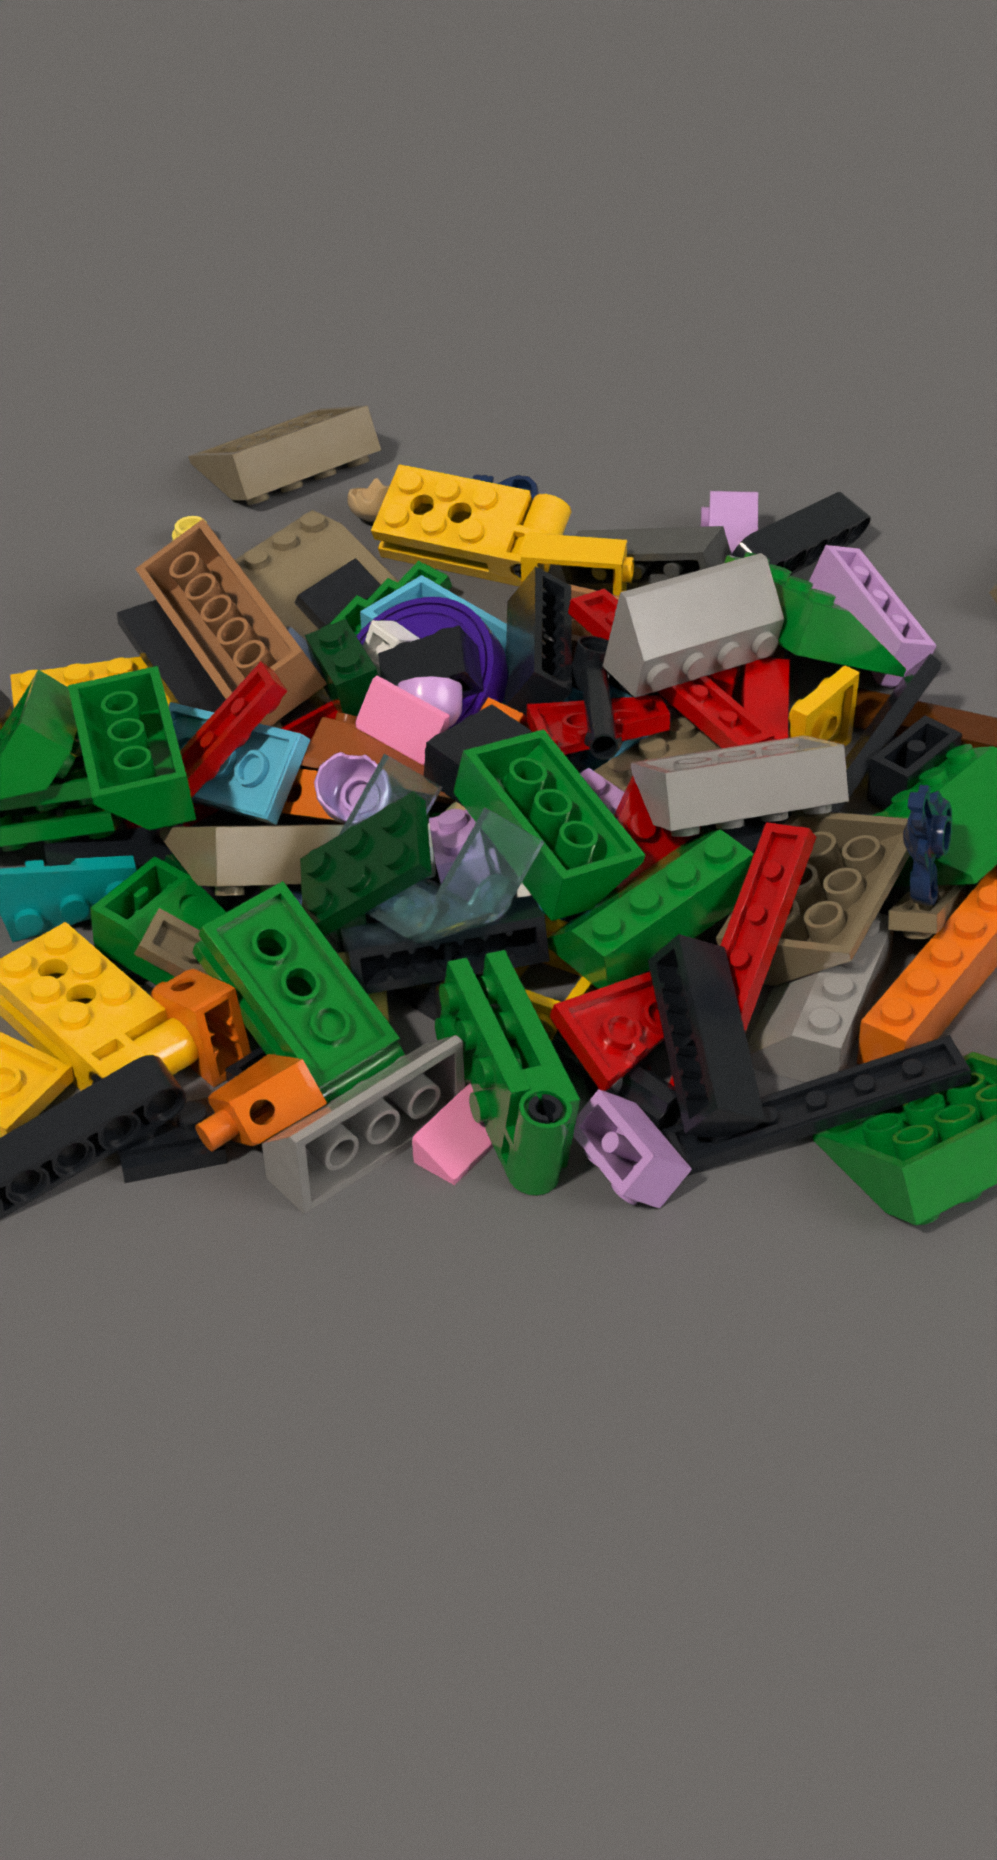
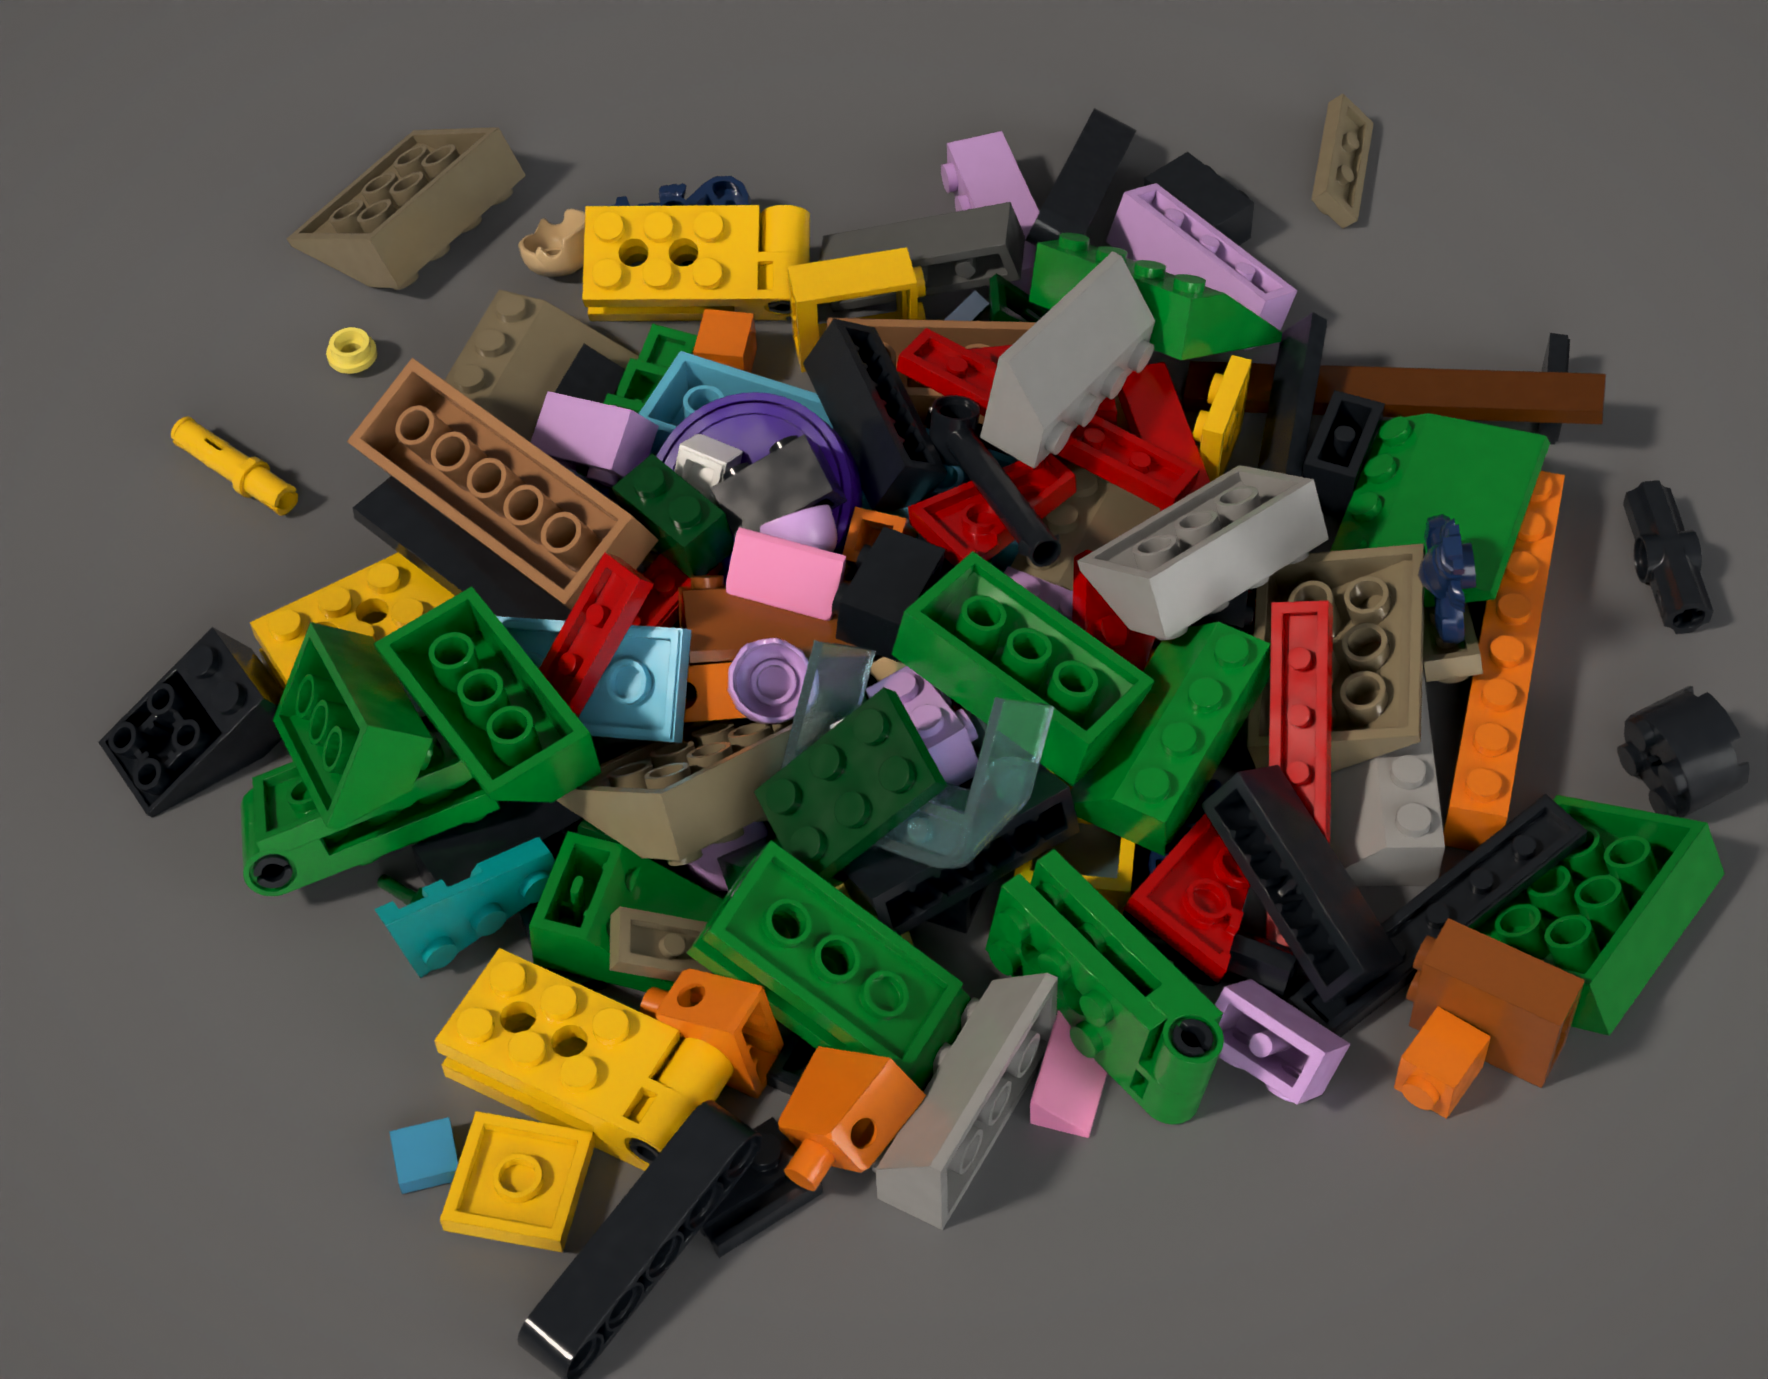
camera: 20 degrees left, 10 degrees up
(71, 592) = (248, 474): none -> yellow pin
(315, 604) = (593, 437): none -> lavender brick
(471, 582) = (727, 338): none -> orange brick
(763, 1206) = (1441, 1062): none -> orange brick
(824, 1169) = (1499, 991): none -> dark orange brick
(904, 574) = (1207, 196): none -> black brick

